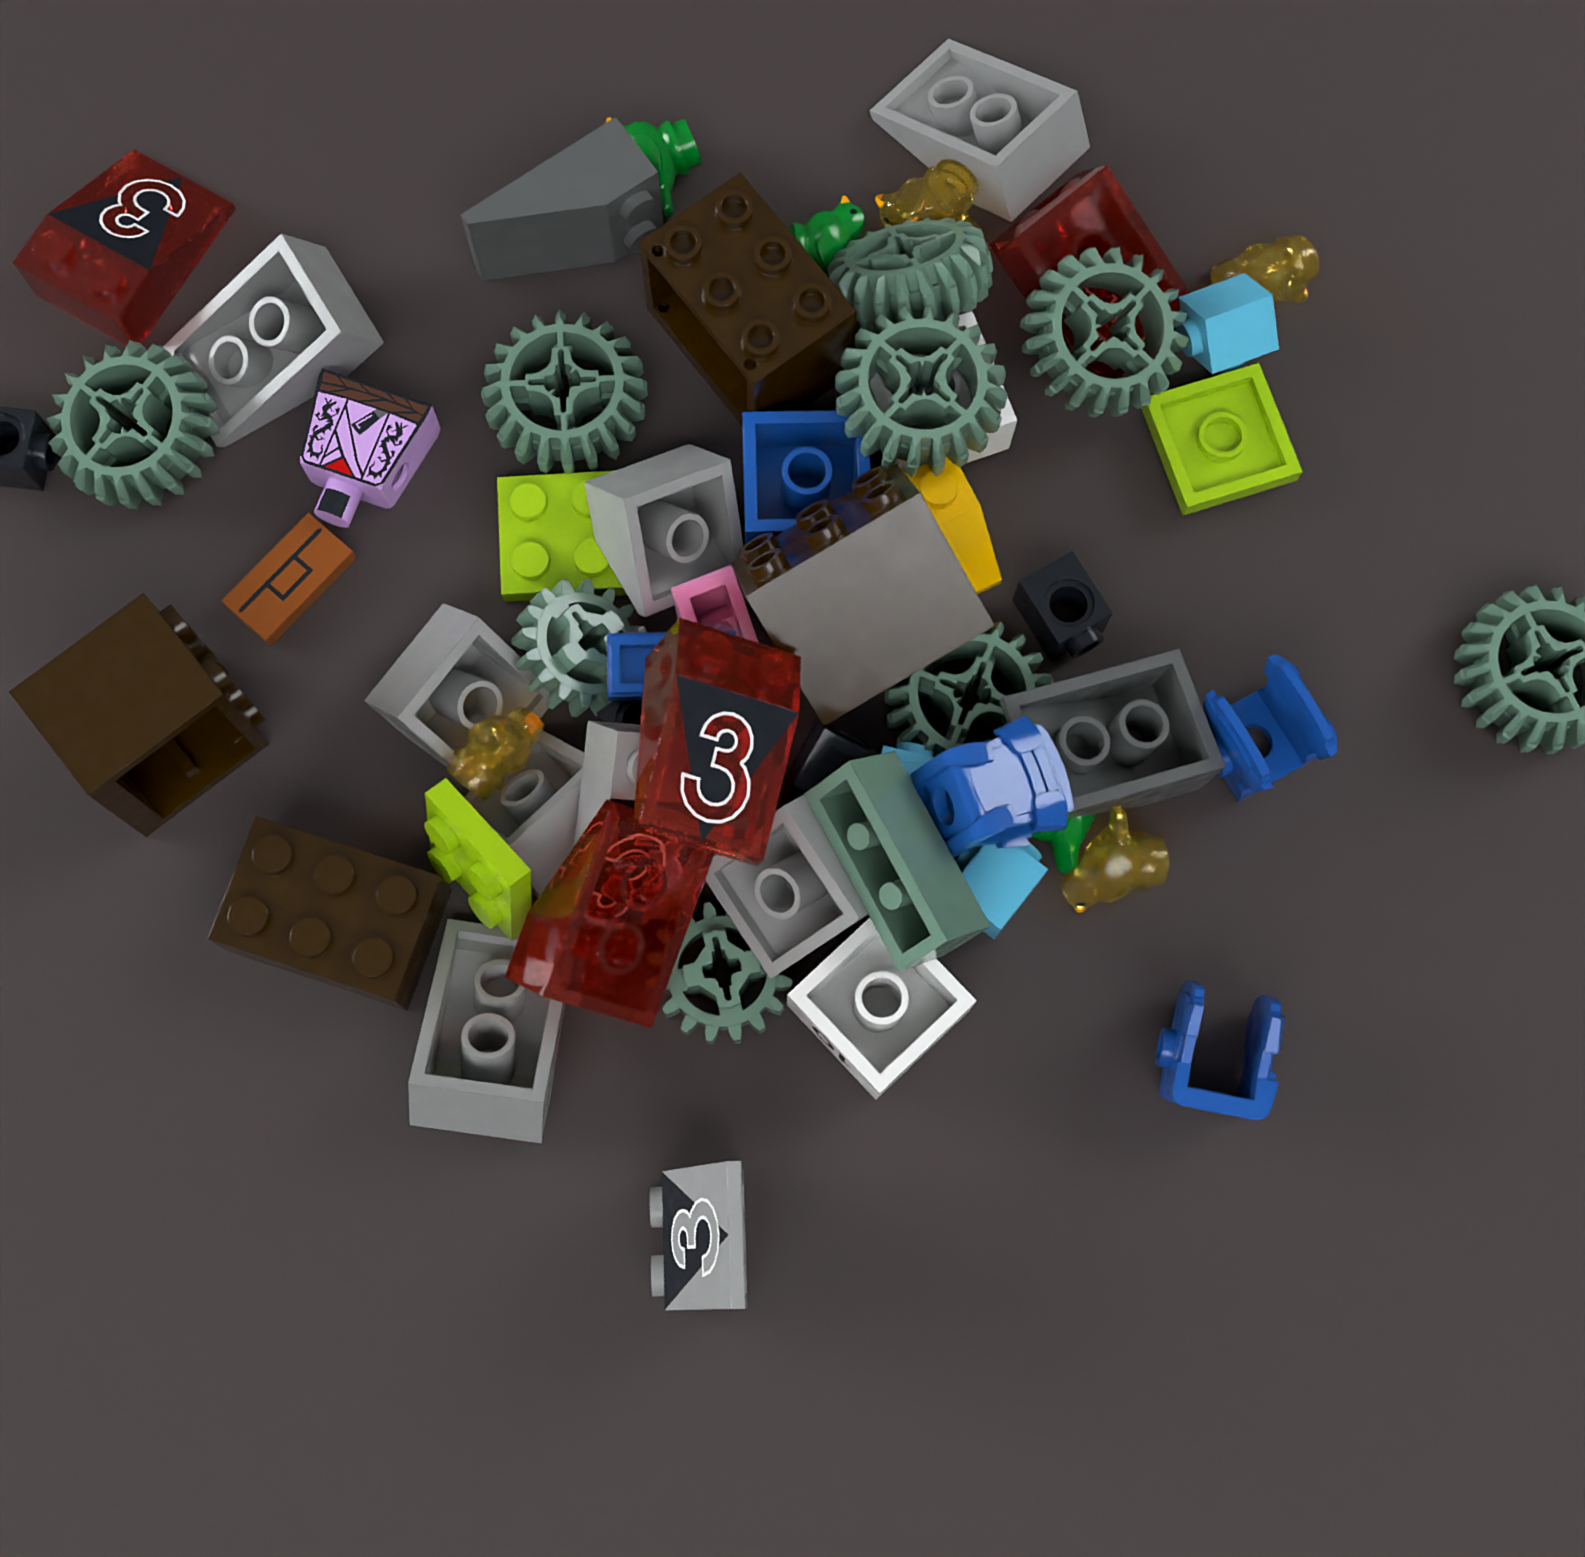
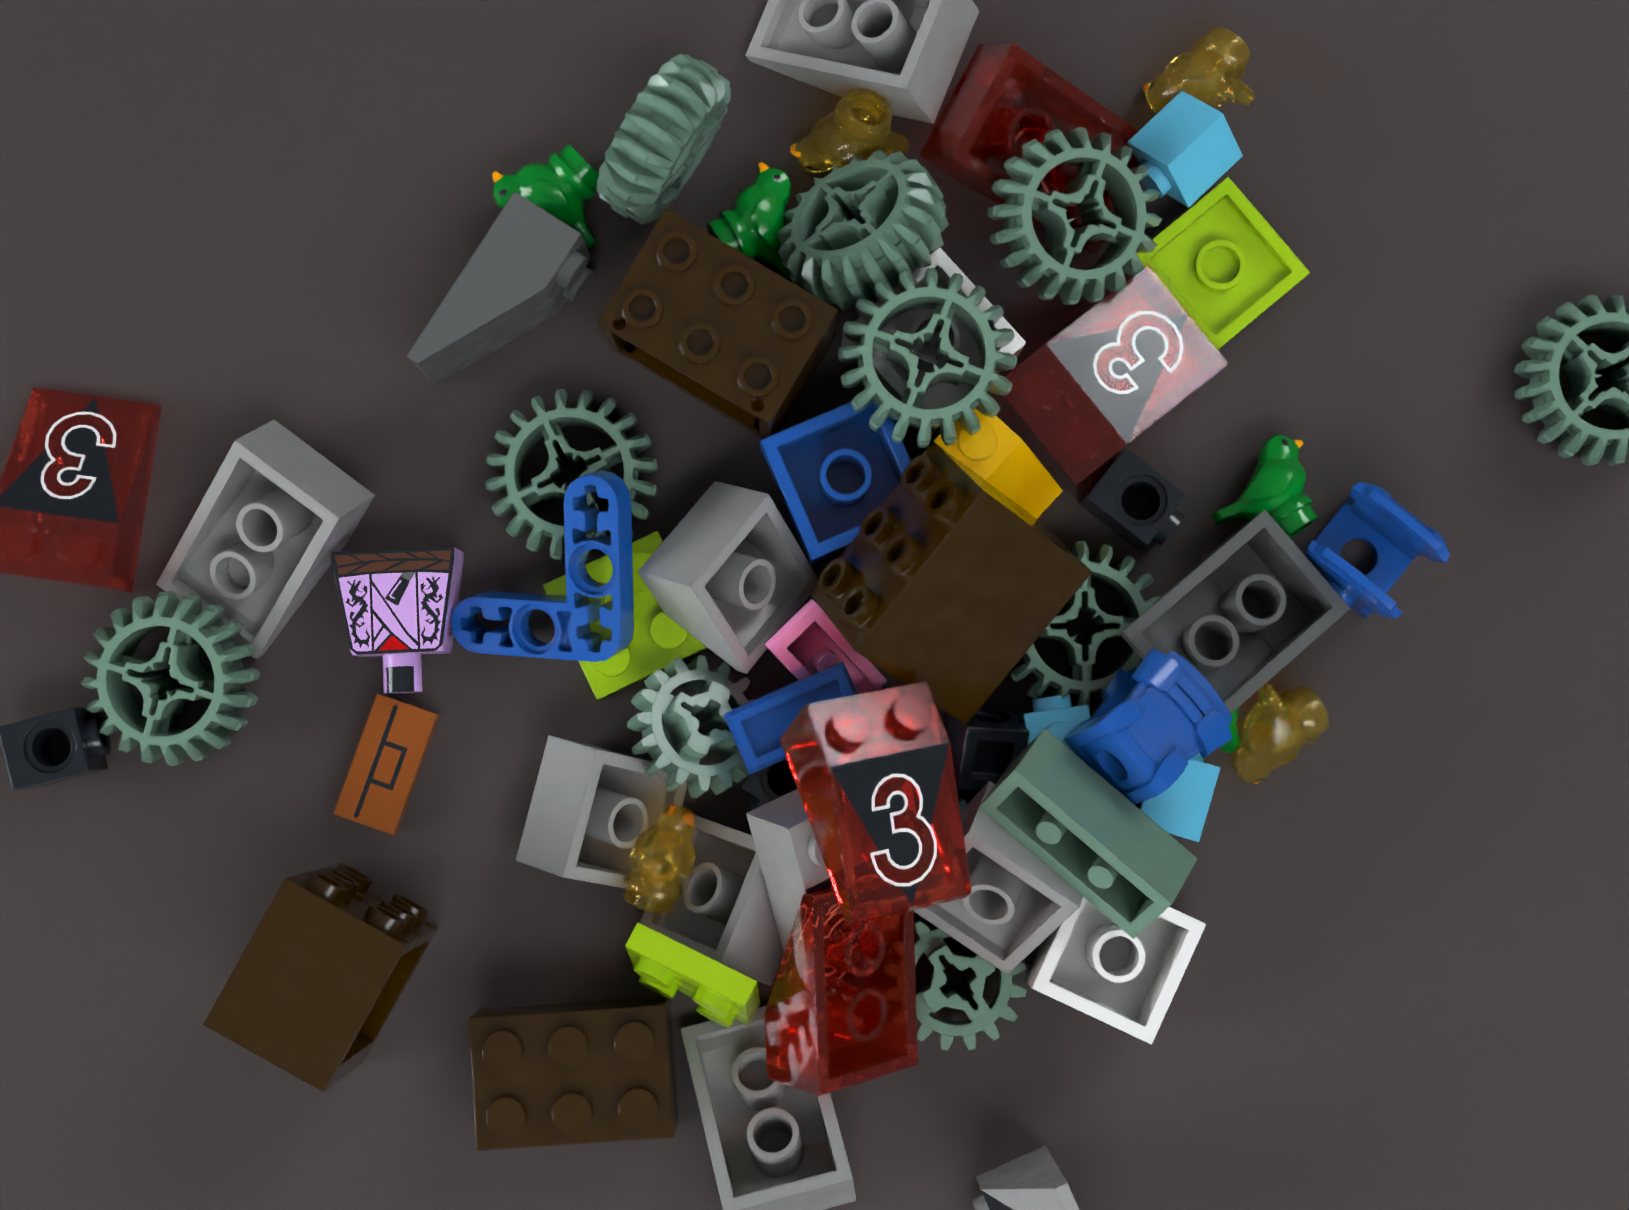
camera: 25 degrees left, 10 degrees up
(515, 502) = (570, 612): none -> blue beam
(769, 132) = (663, 138): none -> sand green gear
(1084, 488) = (1112, 374): none -> clear red slope
(1203, 645) = (1275, 487): none -> green animal
(1257, 1082) = (1483, 900): blue piece -> none

